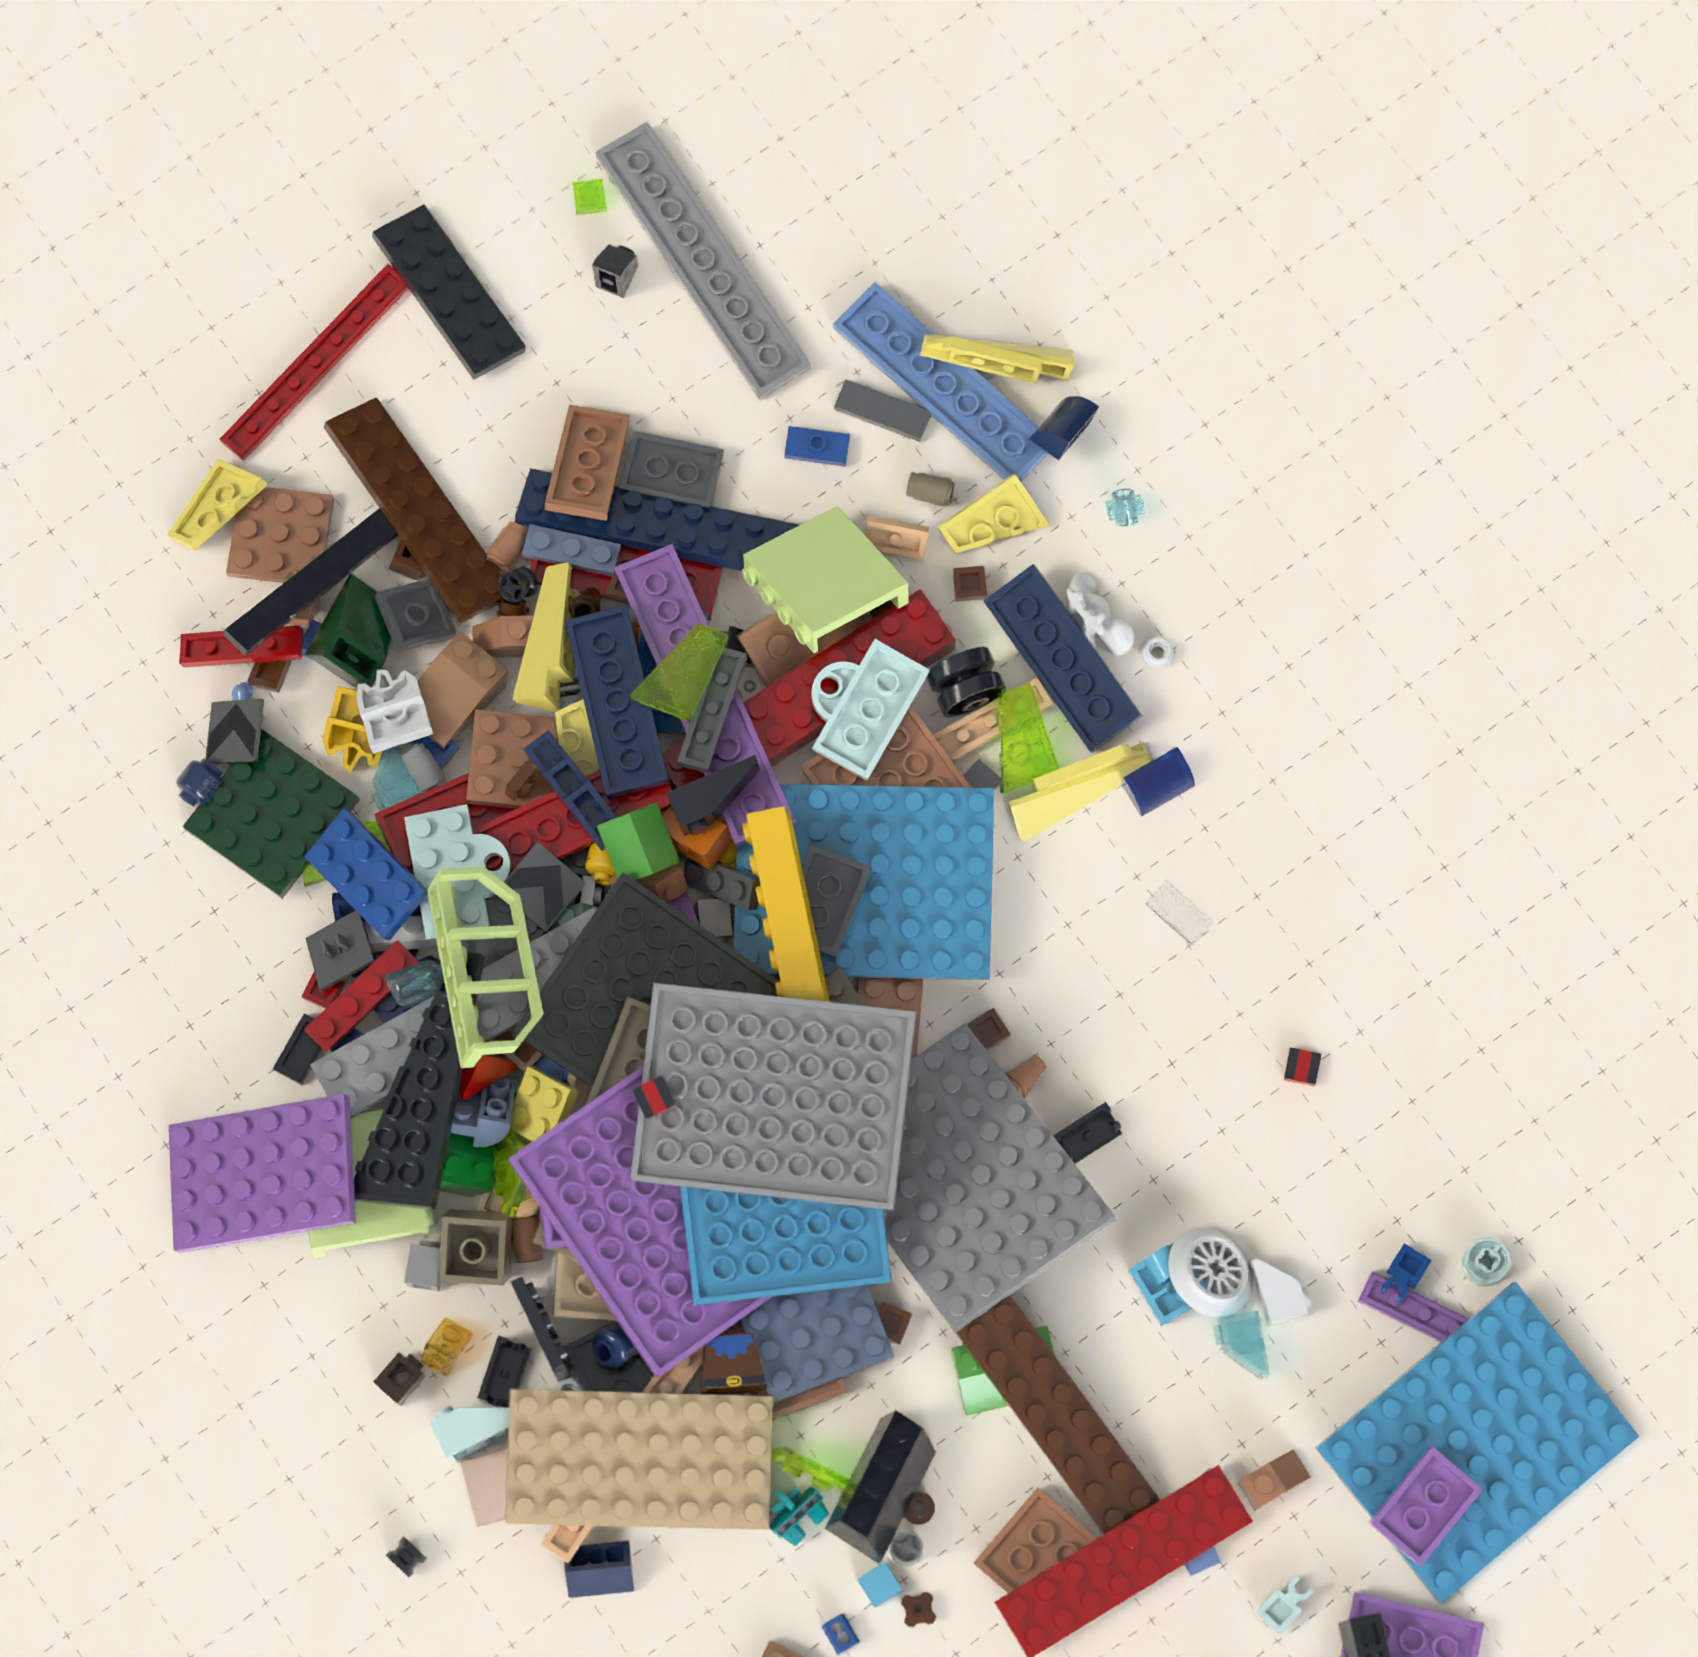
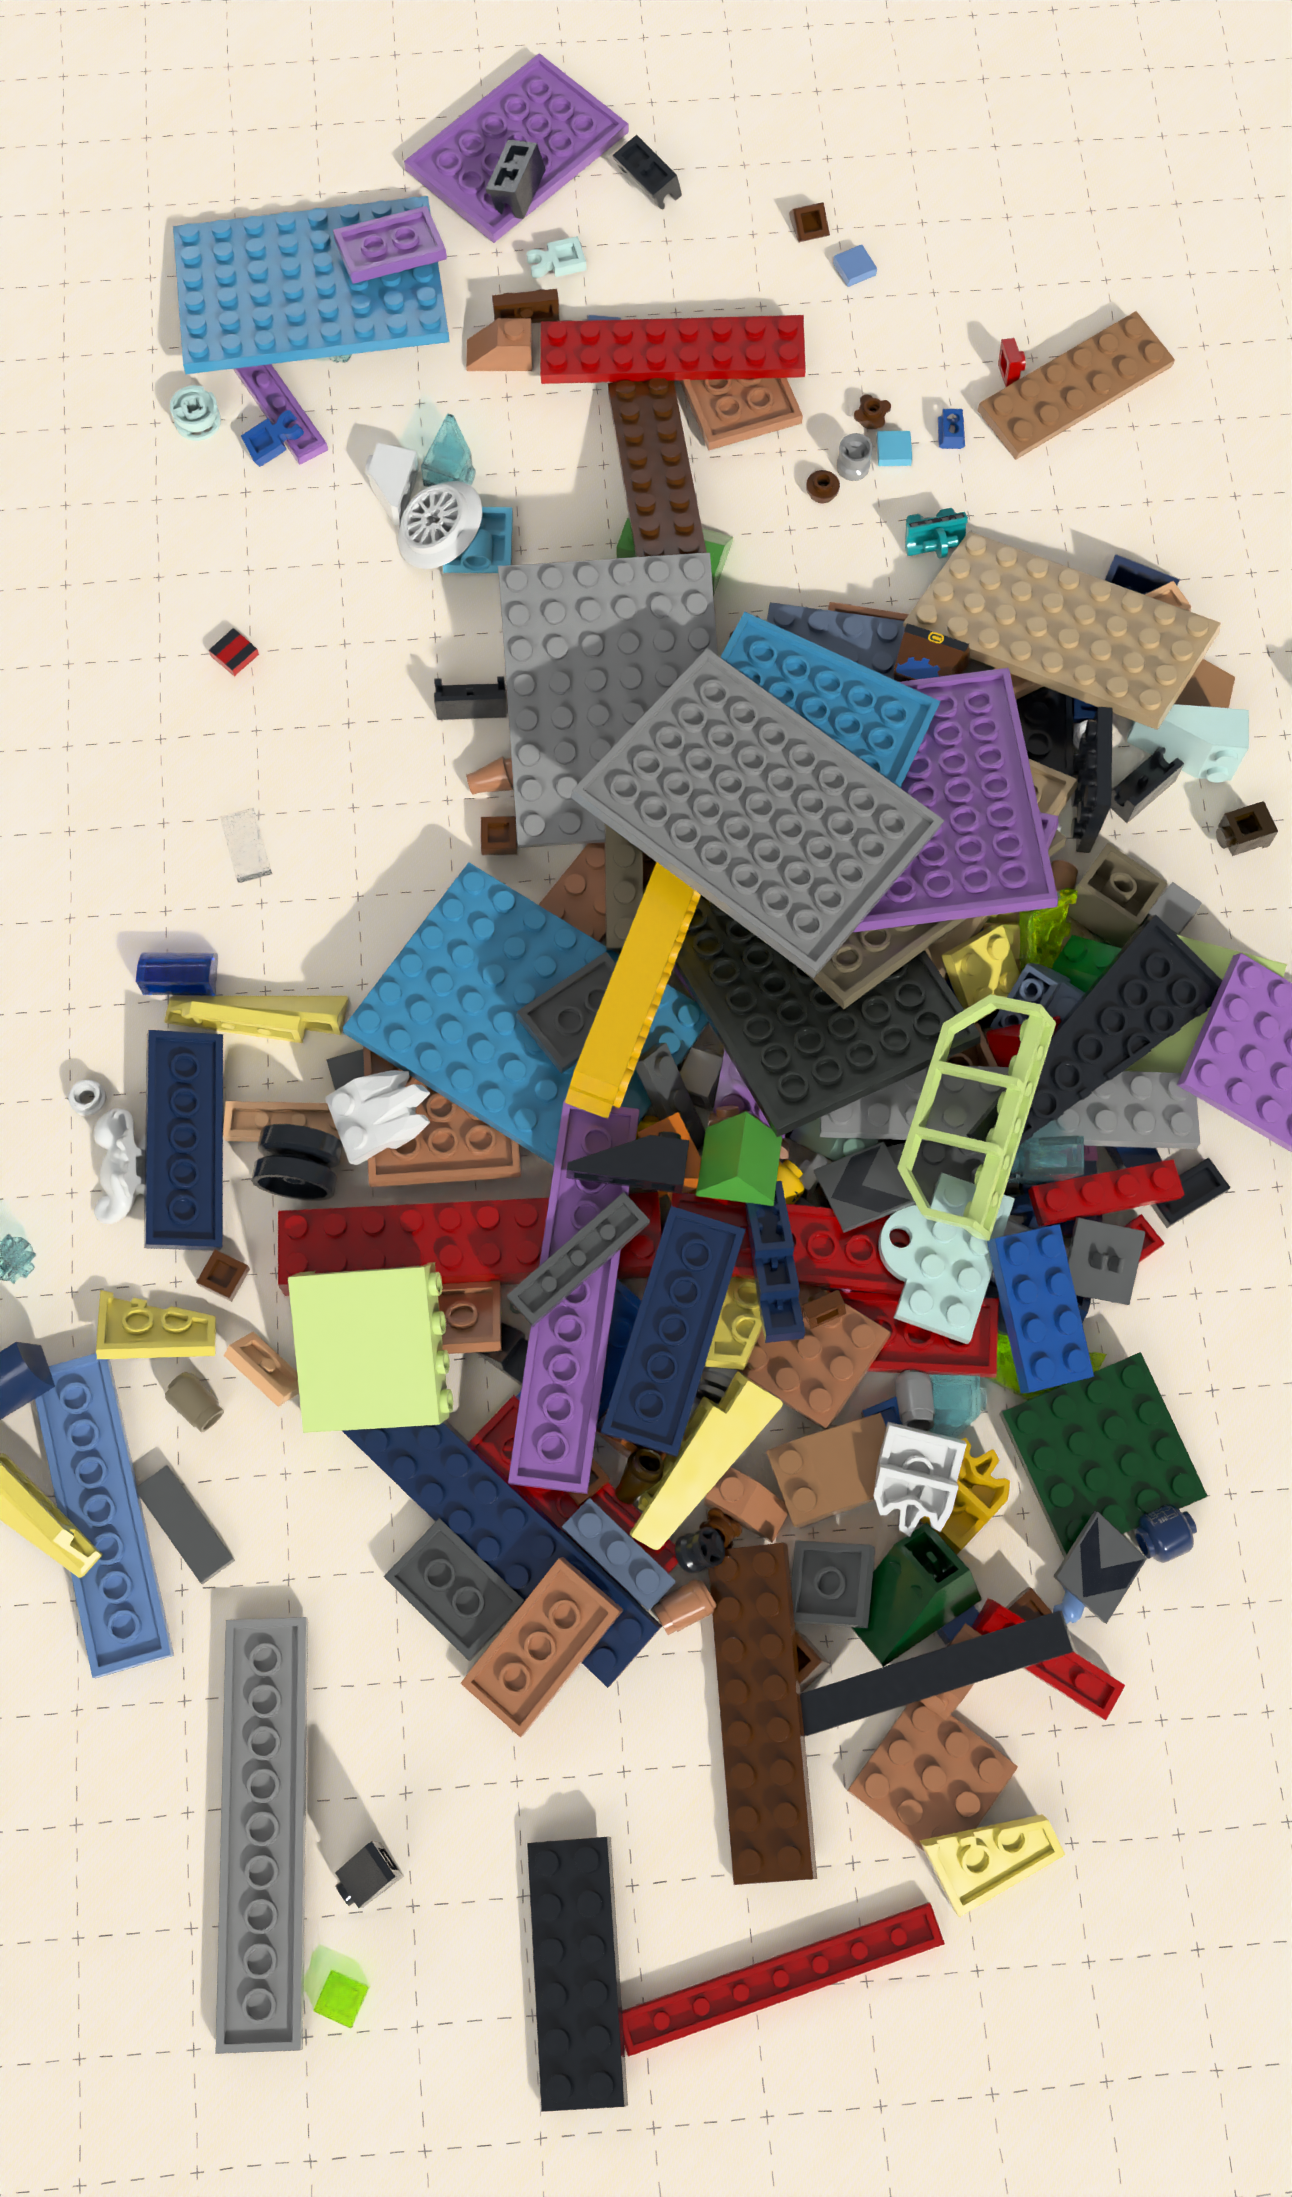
camera: 150 degrees left, 5 degrees down
(445, 1346) = (1185, 837): clear yellow bracket -> none
(612, 1345) = (1036, 733): dark blue head -> none
(654, 1097) = (879, 868): tile -> none
(683, 674) = (587, 1307): clear neon green wing -> none
(799, 1465) = (895, 541): clear neon green wing -> none
(817, 446) = (280, 1525): blue plate -> none
(865, 707) = (416, 1183): light aqua plate -> none
(882, 1486) = (853, 500): black slope -> none
(929, 743) = (377, 1113): none -> white plate
(1024, 739) = (278, 1076): clear neon green wing -> none
(1269, 1544) = (538, 305): none -> reddish brown plate

